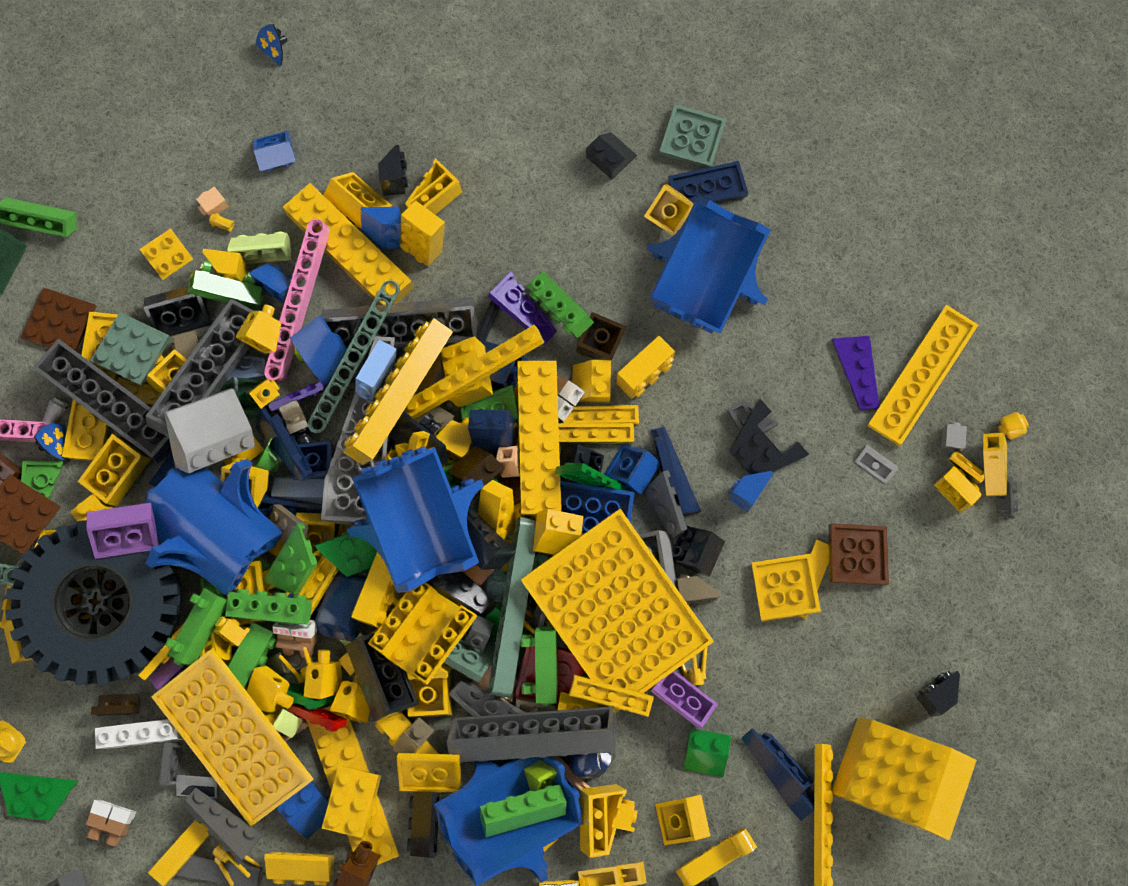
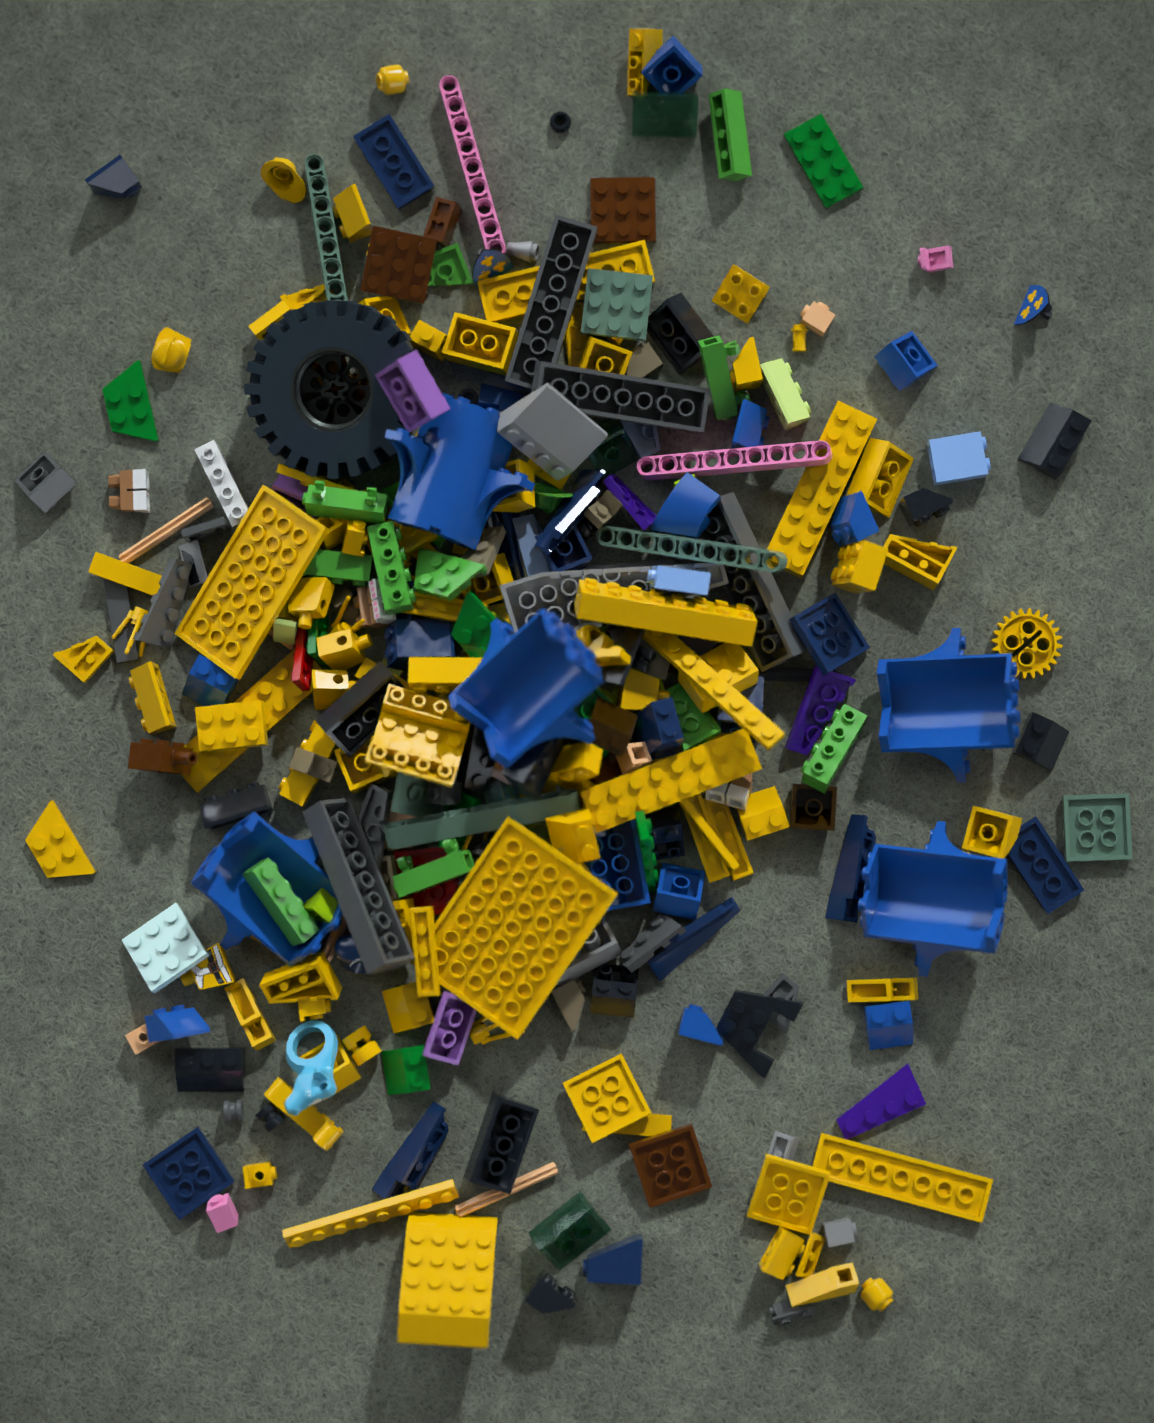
camera: 75 degrees right, 10 degrees up
(90, 158) = (823, 161): none -> green plate
(117, 705) = (245, 450): dark brown bracket -> none
(158, 801) = (166, 531): none -> light nougat axle
(204, 101) = (935, 259): none -> bright pink bracket
(260, 399) = (619, 459): yellow brick -> none
(261, 330) = (685, 436): yellow torso -> none
(366, 138) = (958, 458): none -> light blue brick
(382, 64) = (1054, 440): none -> black slope
(429, 772) = (285, 793): yellow tile -> none
(466, 277) = (829, 633): none -> dark blue plate
(546, 133) = (1013, 628): none -> yellow gear
(557, 203) = (949, 703): none -> blue cylinder
(594, 426) = (709, 834): none -> yellow tile
(645, 368) = (795, 868): yellow brick -> none
(653, 732) = (406, 1009): none -> yellow slope
(669, 328) = (848, 881): none -> dark blue wedge
(680, 784) = (367, 1051): none -> yellow wheel
(686, 834) = (315, 1074): none -> medium azure animal
(766, 337) = (882, 989): none -> yellow slope
(796, 341) = (889, 1024): none -> blue slope
(796, 691) = (501, 1143): none -> black slope
(836, 701) = (493, 1195): none -> light nougat axle
(888, 658) = (569, 1231): none -> clear green slope
(911, 466) = (788, 1194): none -> yellow plate
(928, 626) = (616, 1263): none -> dark blue slope

